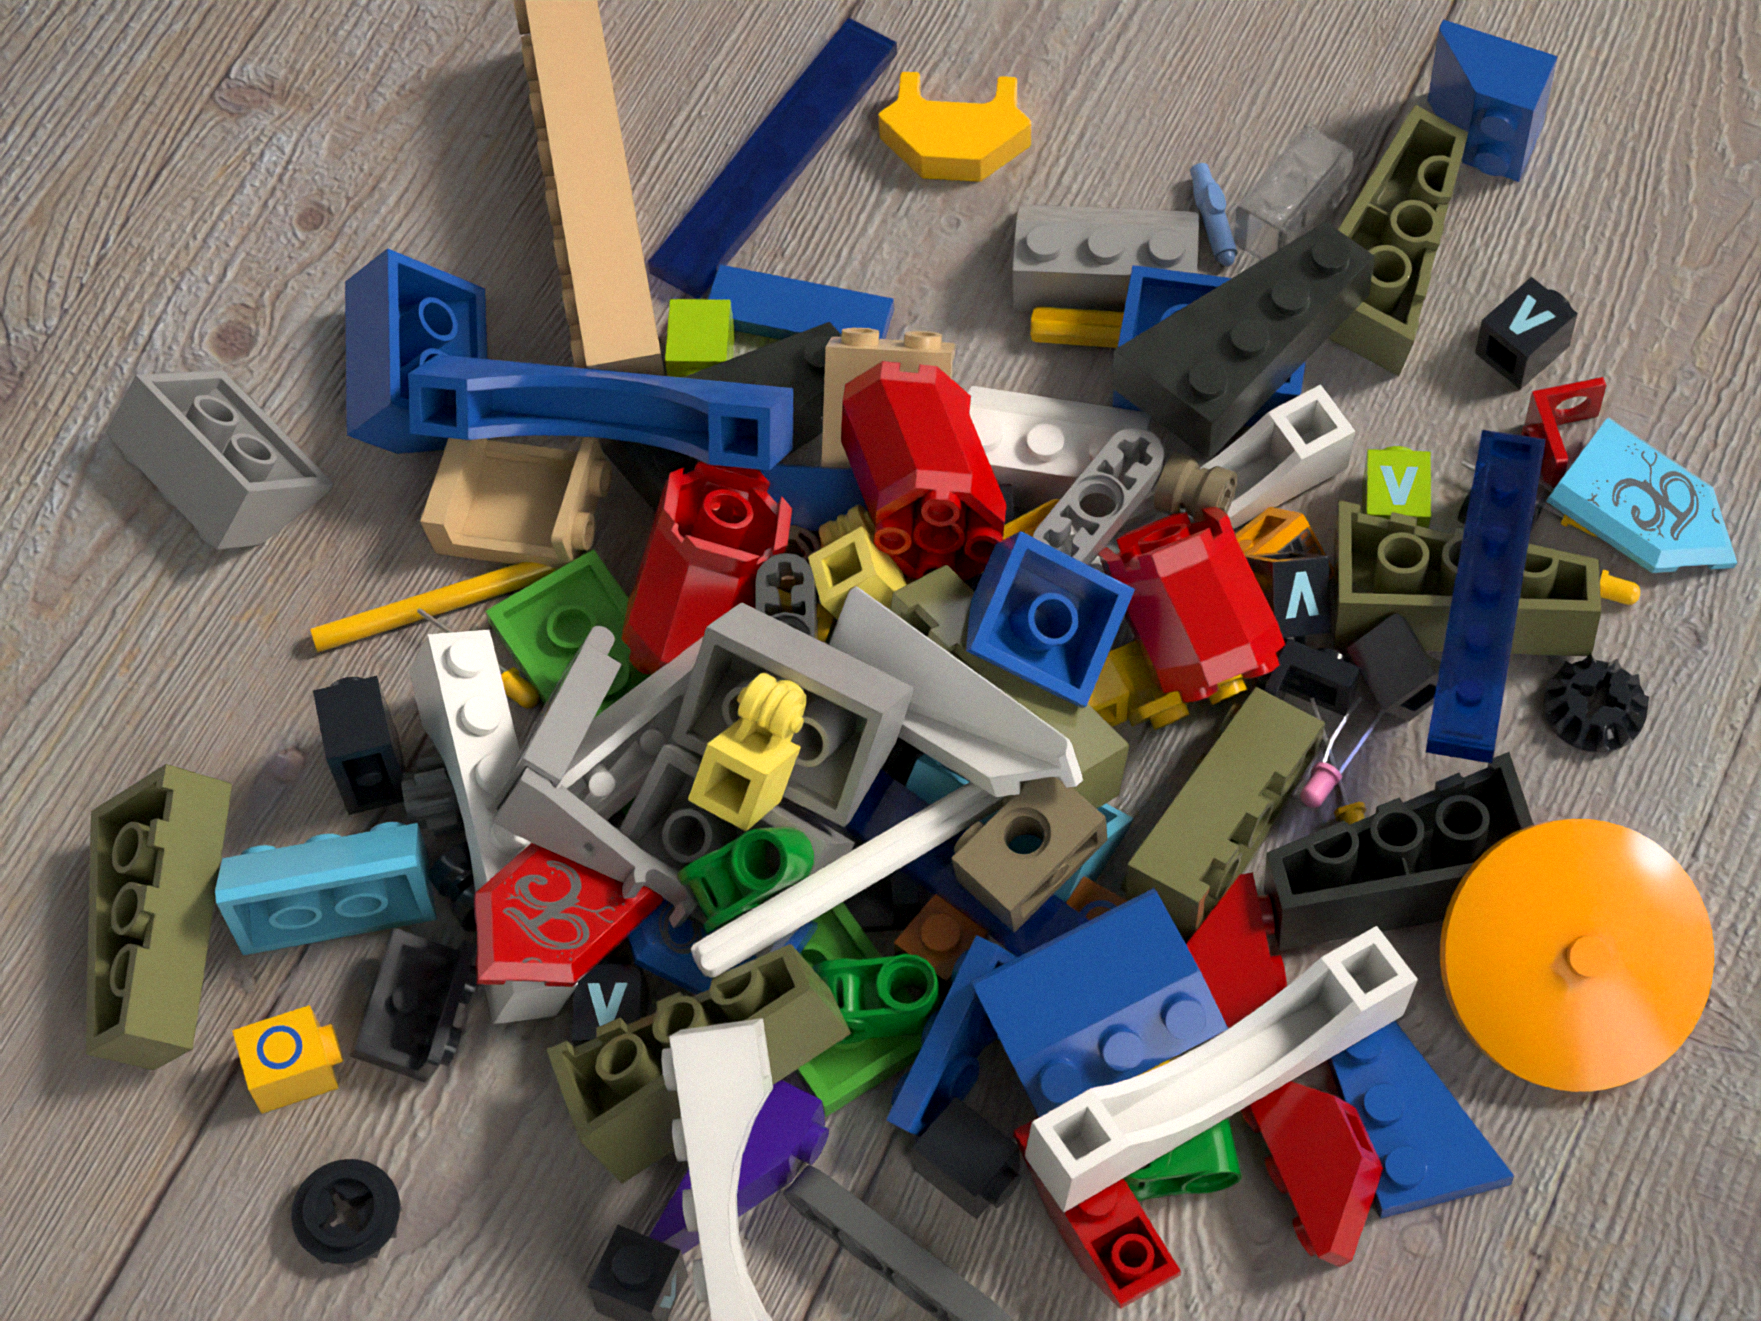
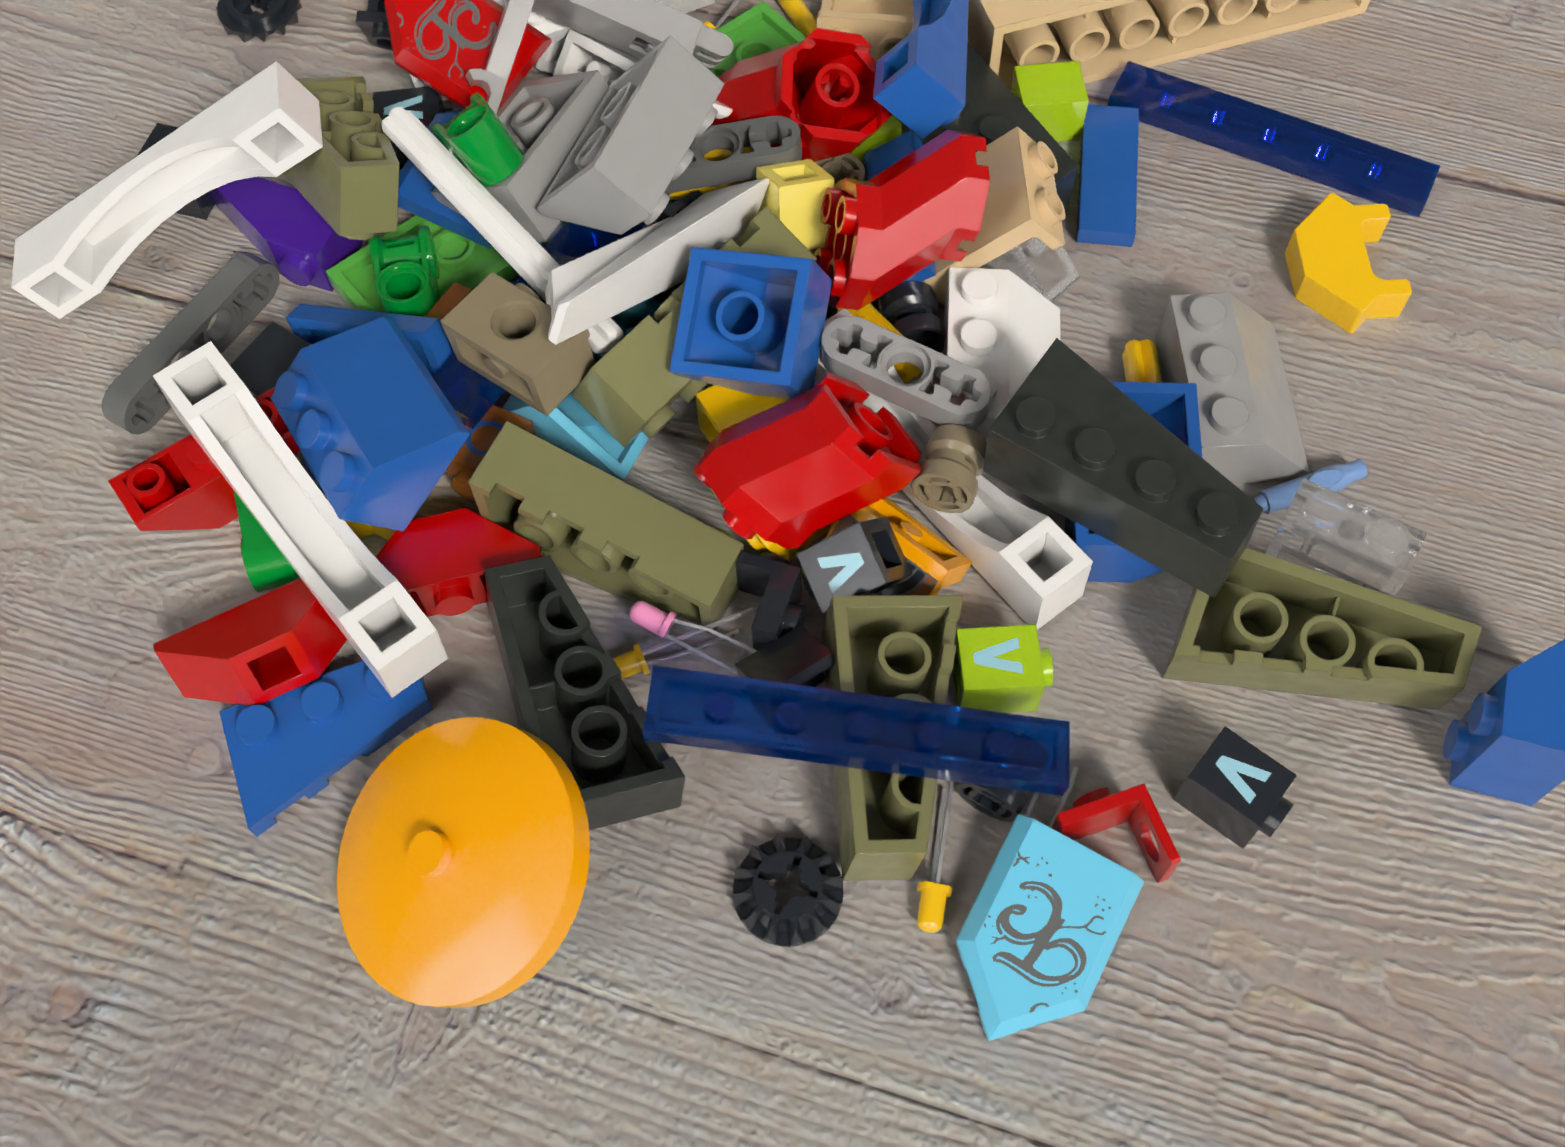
camera: 80 degrees right, 0 degrees up
(754, 757) = (563, 102): light yellow brick -> none

